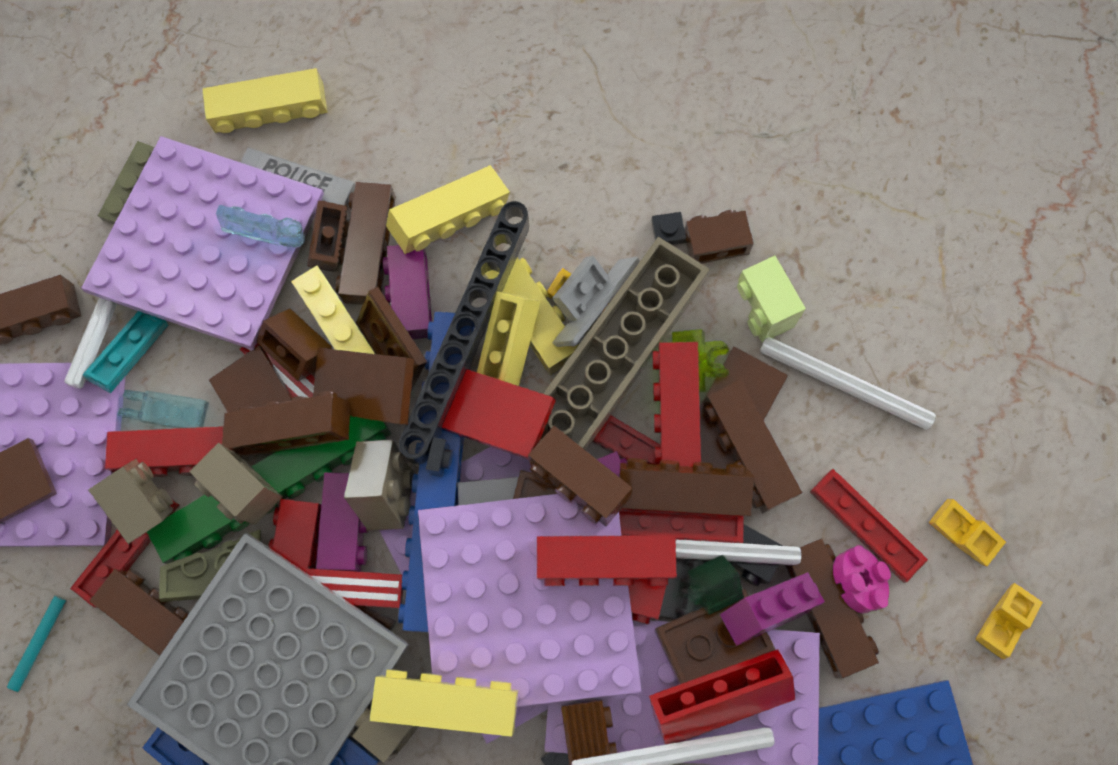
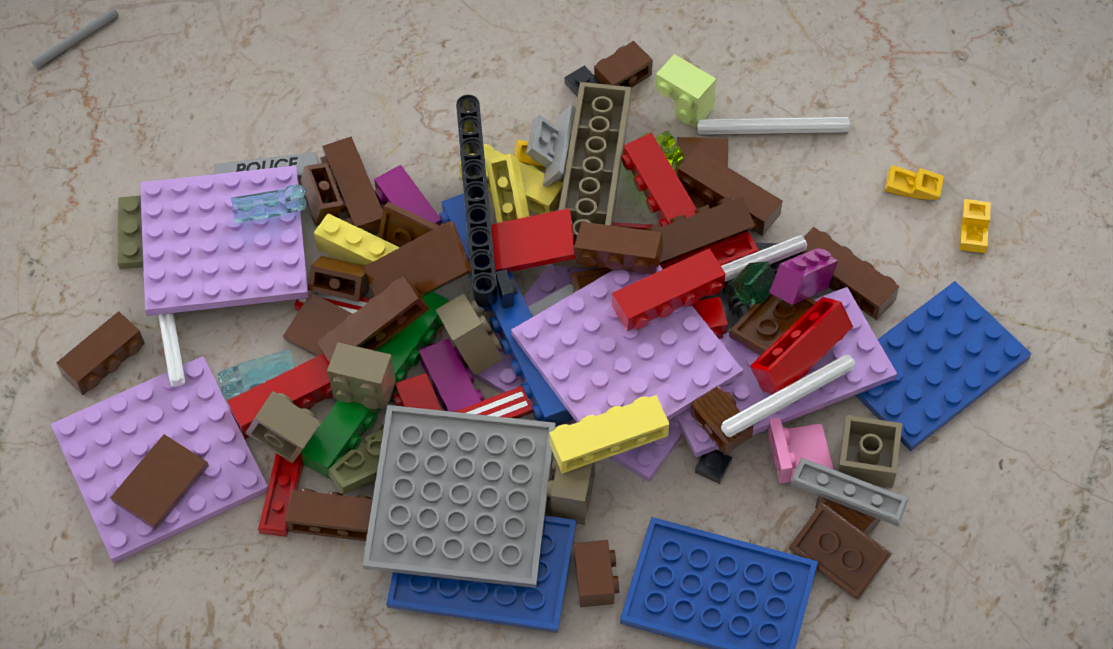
camera: 30 degrees left, 15 degrees down
(36, 643) = (252, 581): teal bar -> none
(125, 351) = (202, 344): teal tile -> none
(264, 101) = (209, 124): light yellow brick -> none
(447, 209) = (407, 133): light yellow brick -> none
(862, 579) = (859, 240): dark pink plate -> none
(869, 526) = (842, 211): red tile -> none

